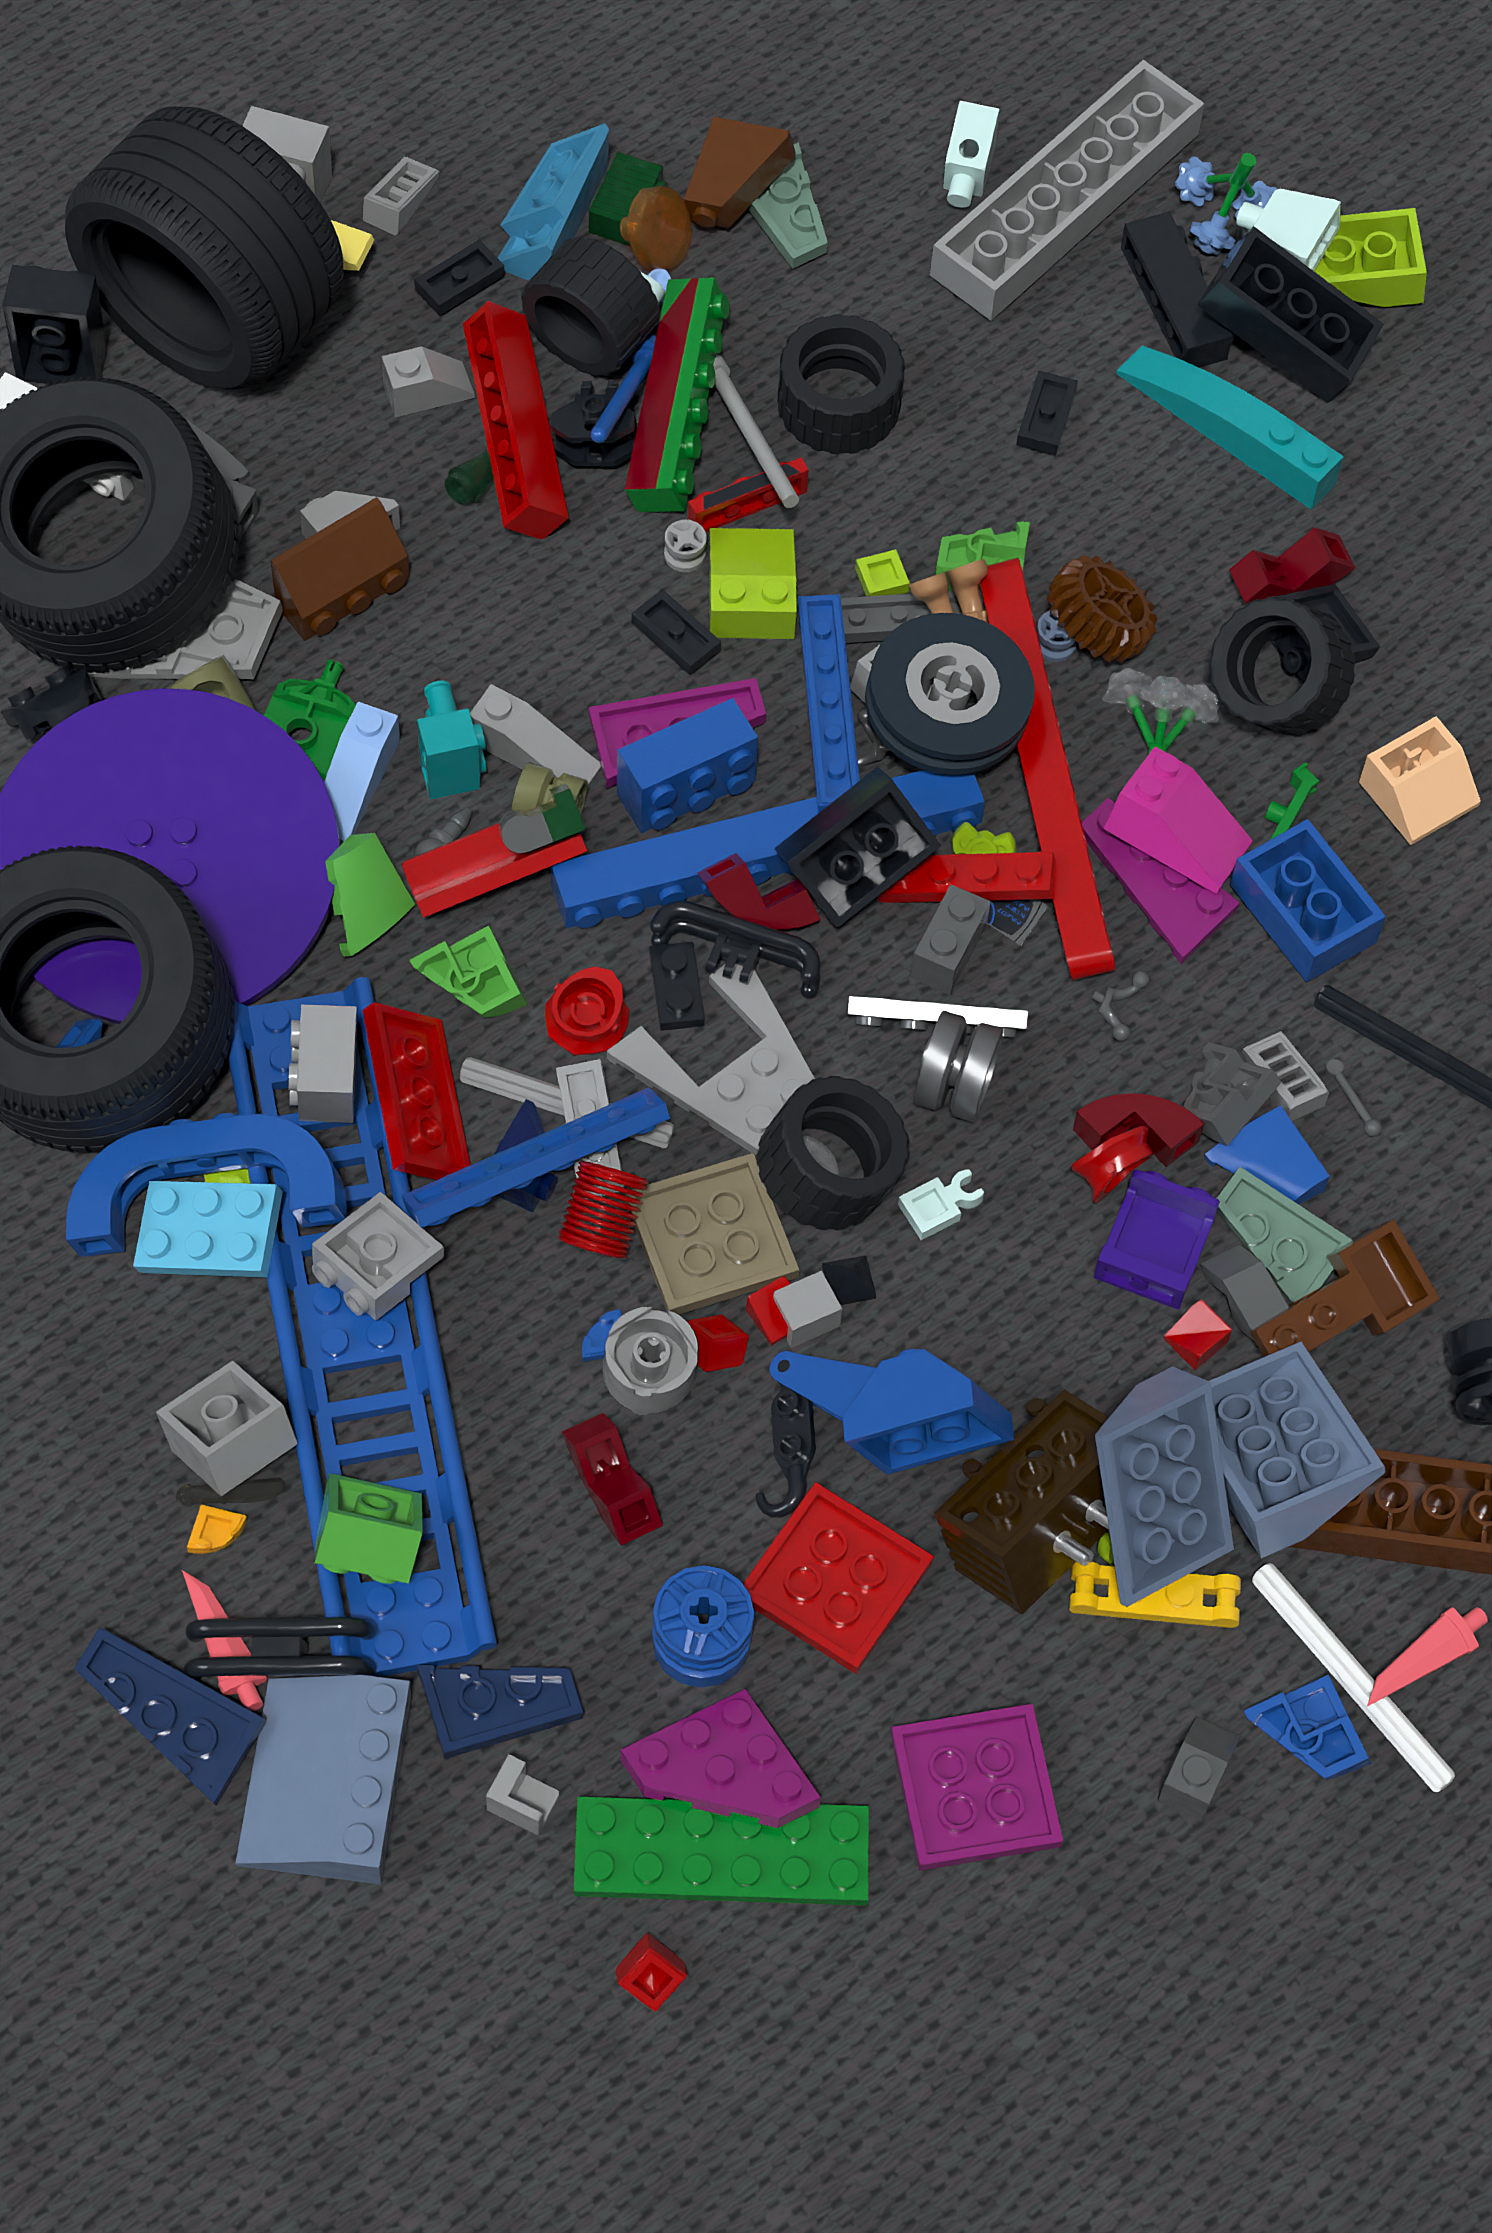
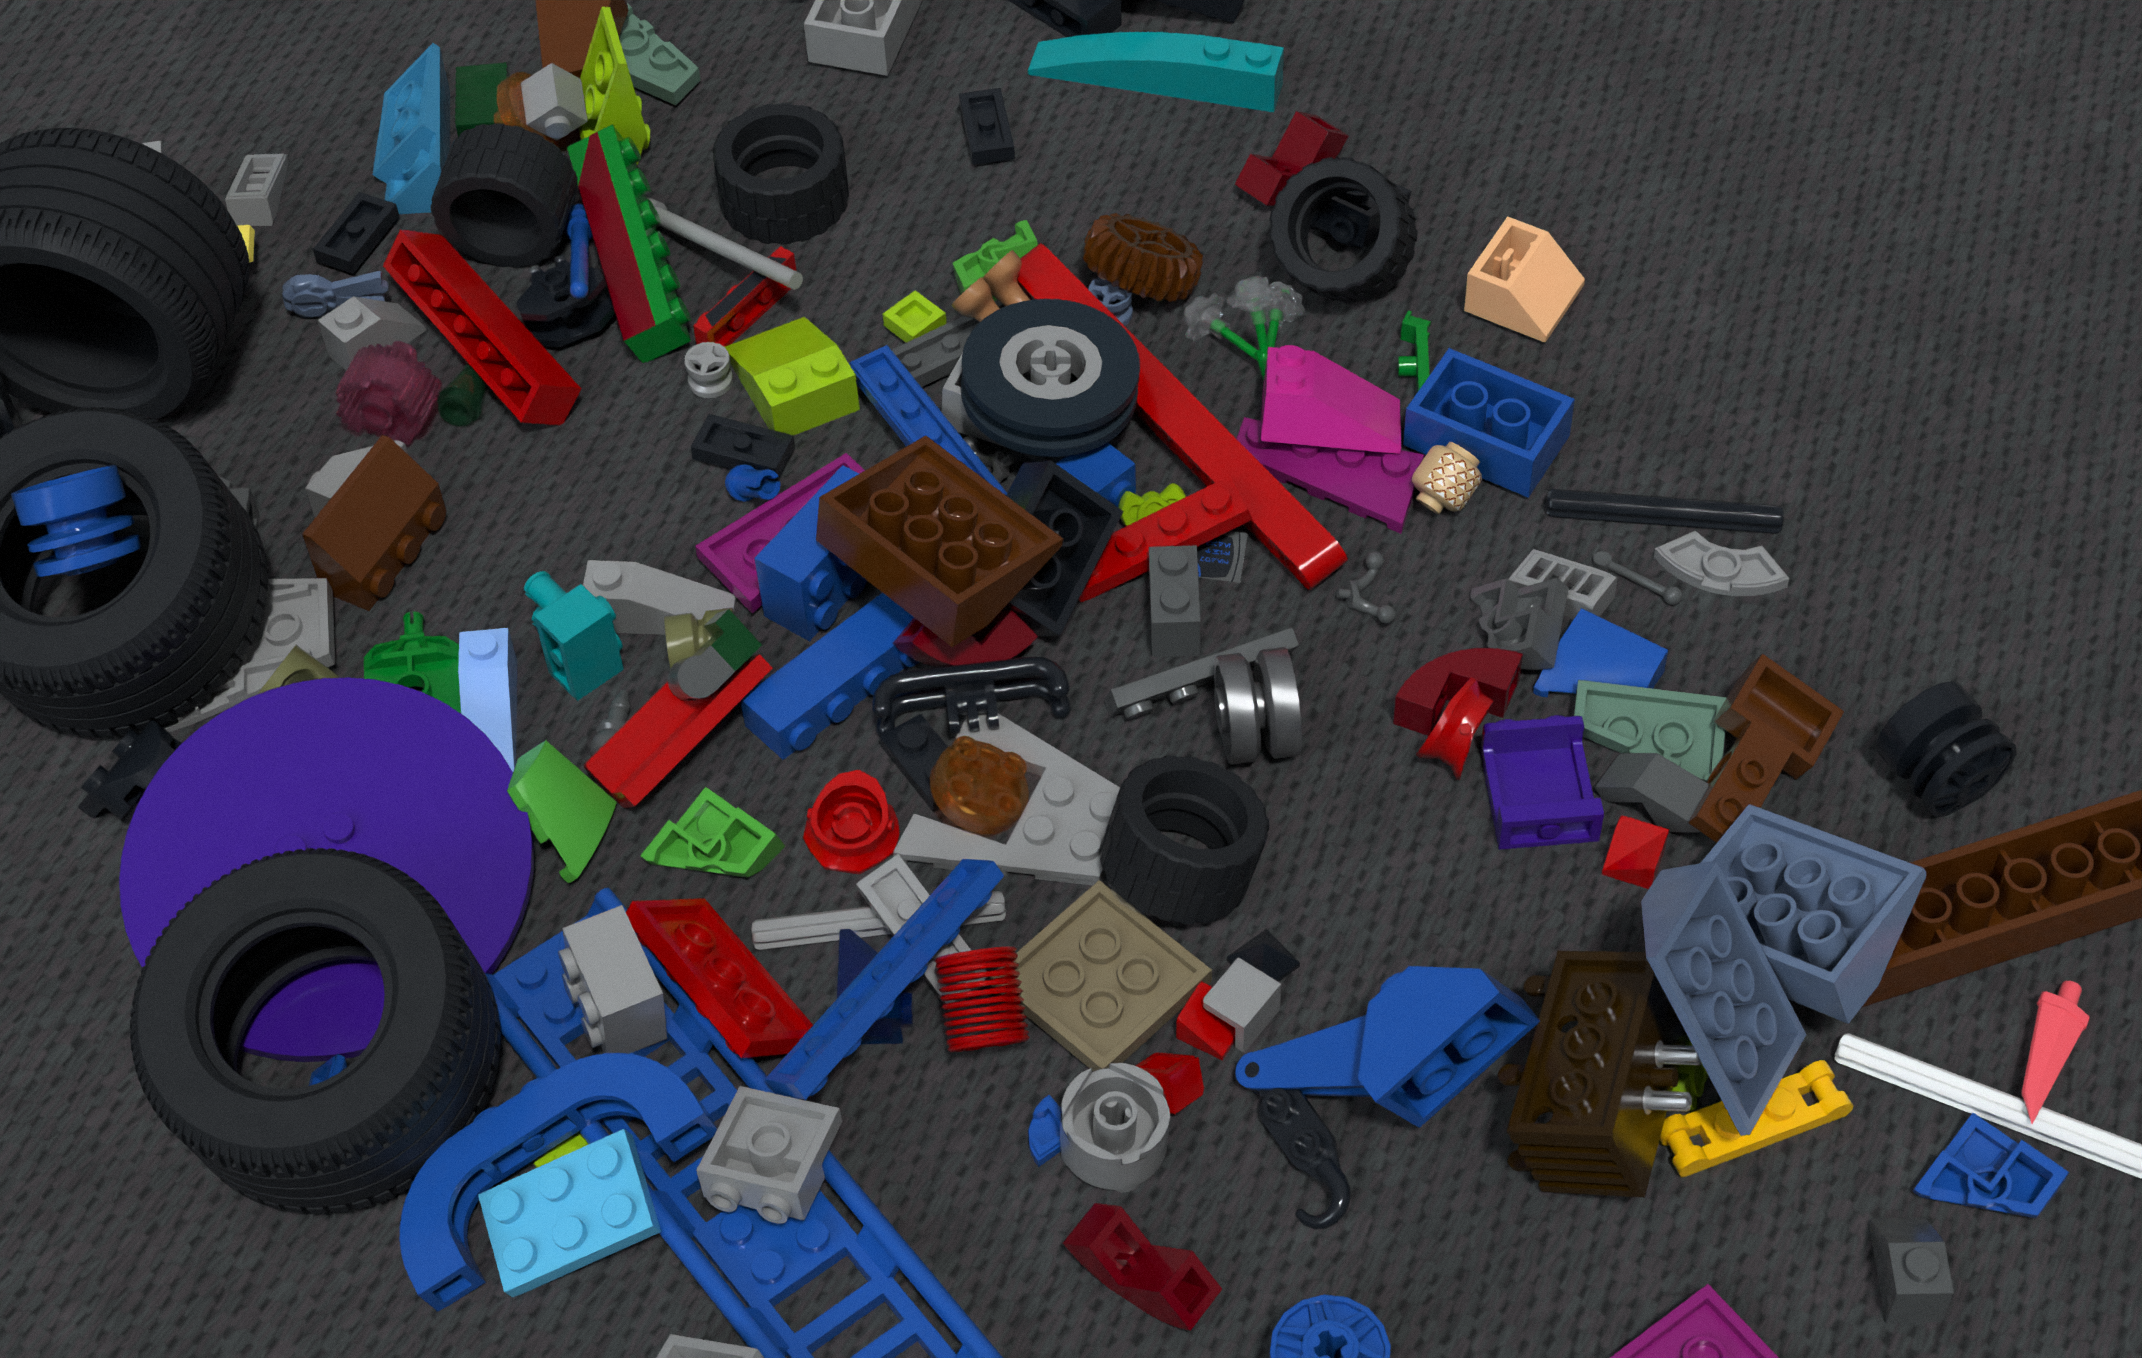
camera: 20 degrees left, 10 degrees down
(86, 478) = (76, 521): none -> blue wheel
(397, 328) = (316, 296): none -> sand blue piece
(407, 451) = (387, 392): none -> clear pink brick
(662, 668) = (747, 483): none -> blue pin
(680, 228) = (554, 102): none -> light grey brick
(703, 1028) = (979, 786): none -> clear orange tile
(730, 241) = (609, 87): none -> lime slope
(765, 803) = (935, 538): none -> reddish brown slope
(836, 1577) = (1432, 1254): red plate -> none
(935, 1206) = (1309, 851): light aqua plate -> none
(1241, 935) = (1446, 478): none -> tan head
(1429, 1123) = (1721, 568): none -> light grey tile

